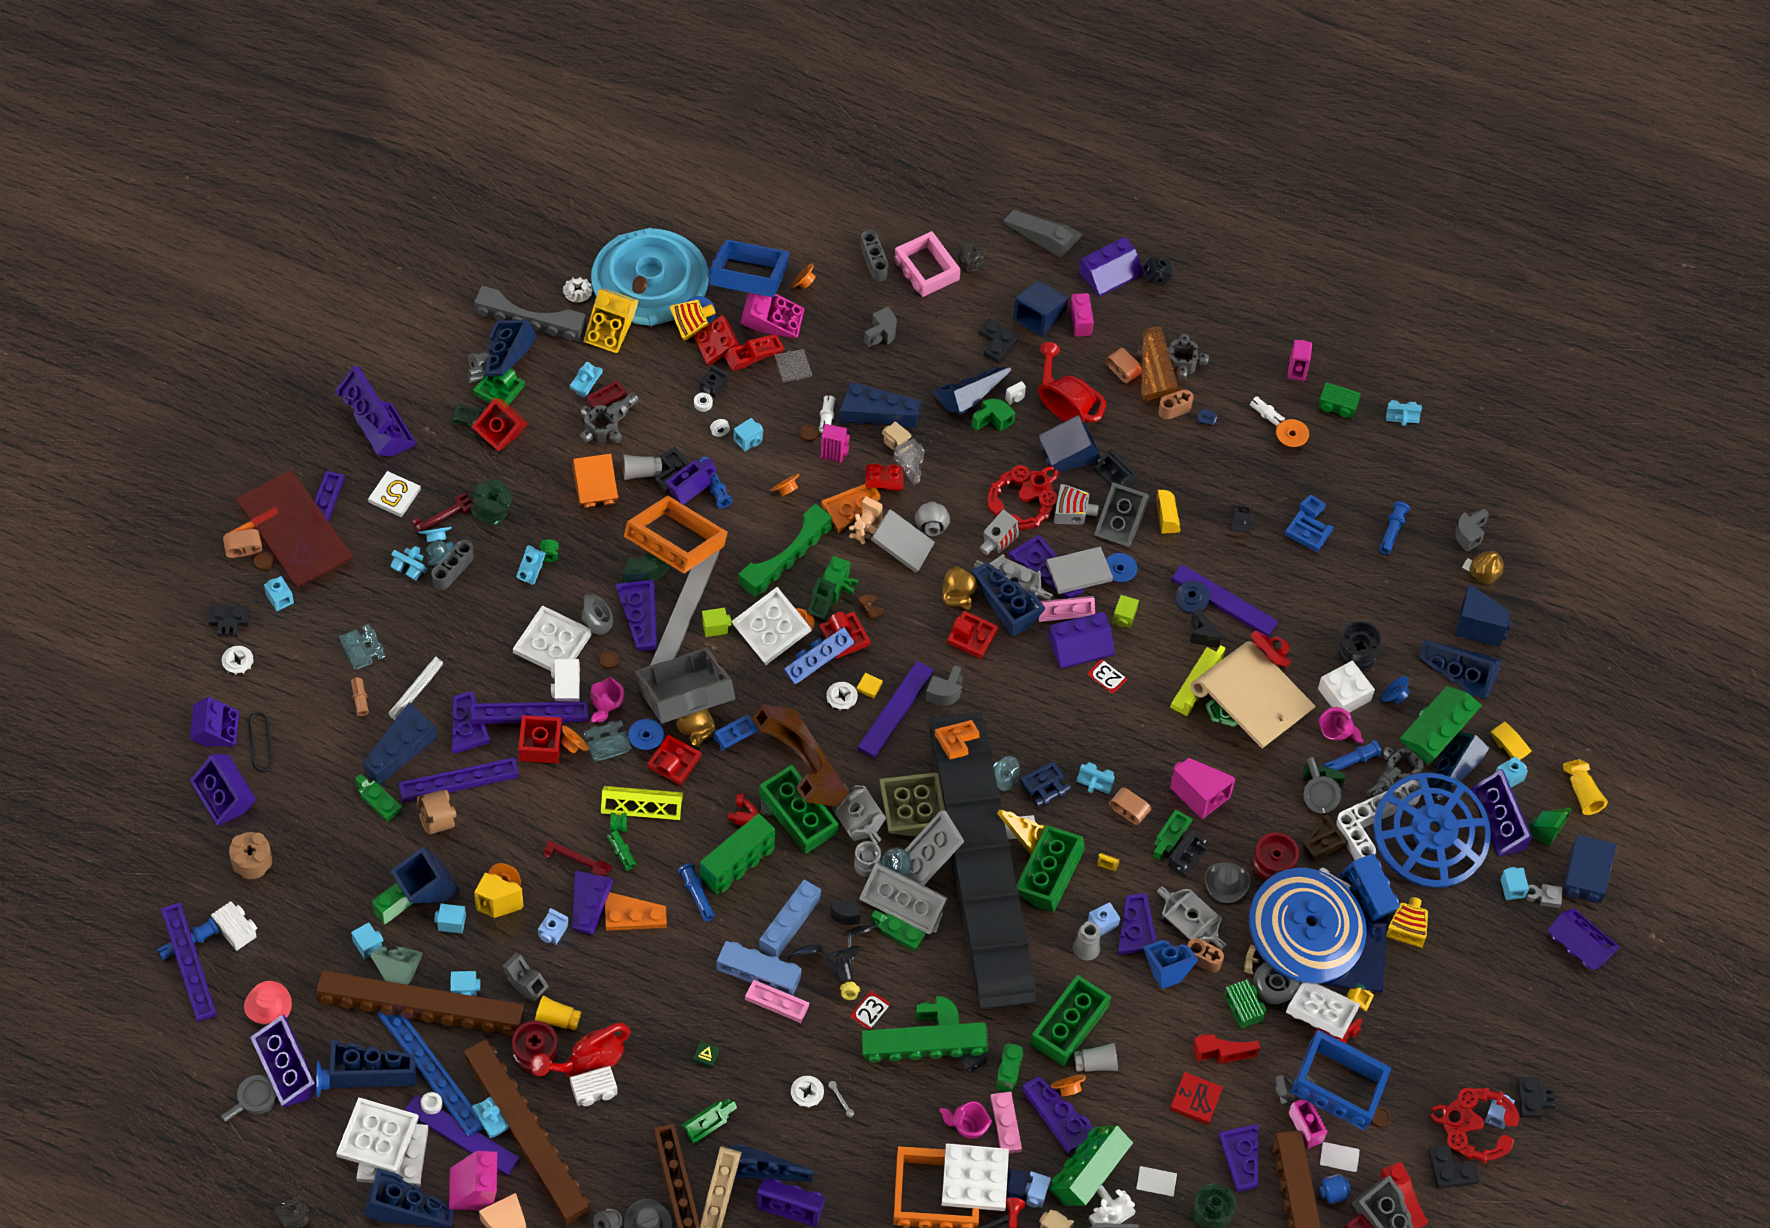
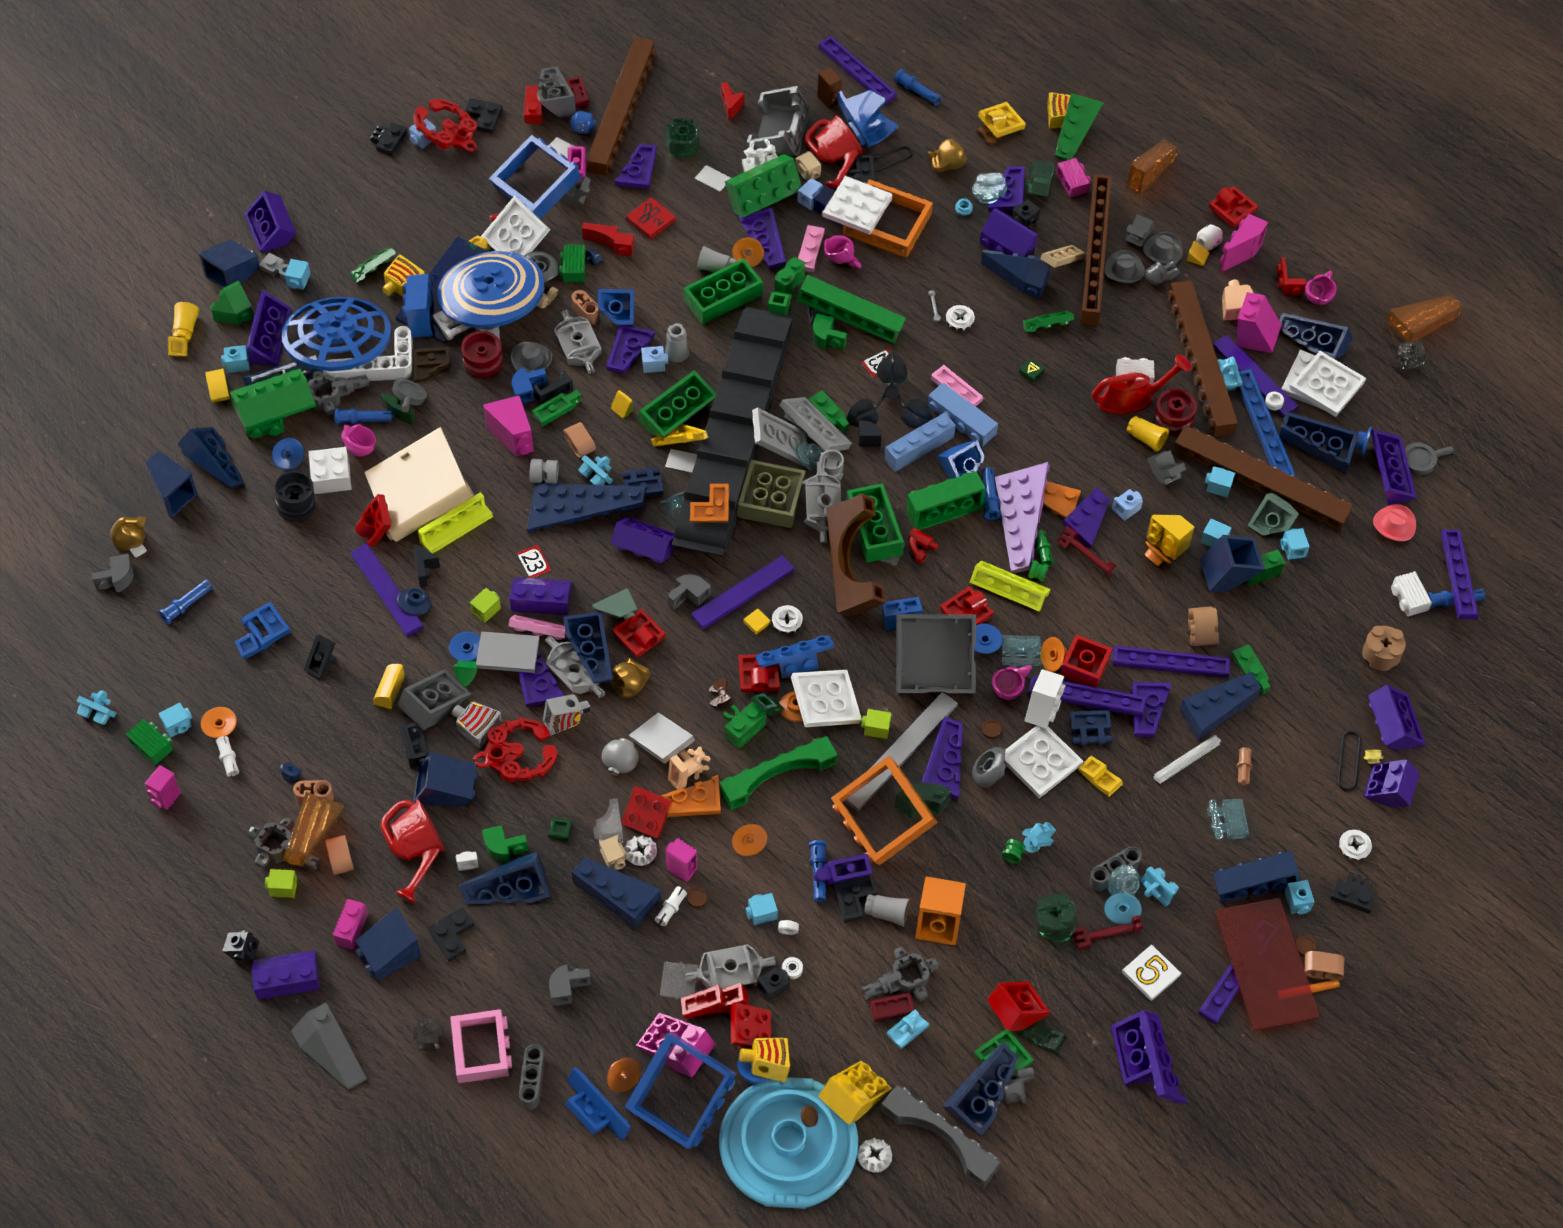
camera: 155 degrees left, 0 degrees up
(238, 750) = (1373, 756): none -> light yellow plate
(318, 594) = (1256, 877): none -> dark blue wedge
(491, 647) = (1099, 776): none -> yellow slope
(517, 691) = (1090, 722): none -> dark blue plate
(658, 881) = (1021, 511): none -> wing
(739, 908) = (962, 459): none -> blue slope
(744, 391) = (713, 970): none -> light grey plate
(816, 247) = (593, 1108): none -> blue bracket
(881, 458) = (637, 857): none -> white gear
(953, 448) = (560, 829): none -> dark green tile
(1003, 1024) = (779, 302): none -> green brick
(1004, 642) = (617, 605): none -> sand green slope
(1014, 726) = (643, 539): none -> dark purple slope
(1101, 737) = (578, 502): none -> dark blue wing
(1109, 546) = (465, 671): none -> green tile
(1147, 757) = (537, 470): none -> light grey wheel
(1159, 320) = (281, 883): none -> lime brick
(1218, 846) = (523, 382): none -> blue brick
(1229, 1024) = (593, 257): none -> dark blue piece
(1330, 424) = (176, 719): none -> medium azure brick
(1450, 930) = (371, 264): none -> hinge

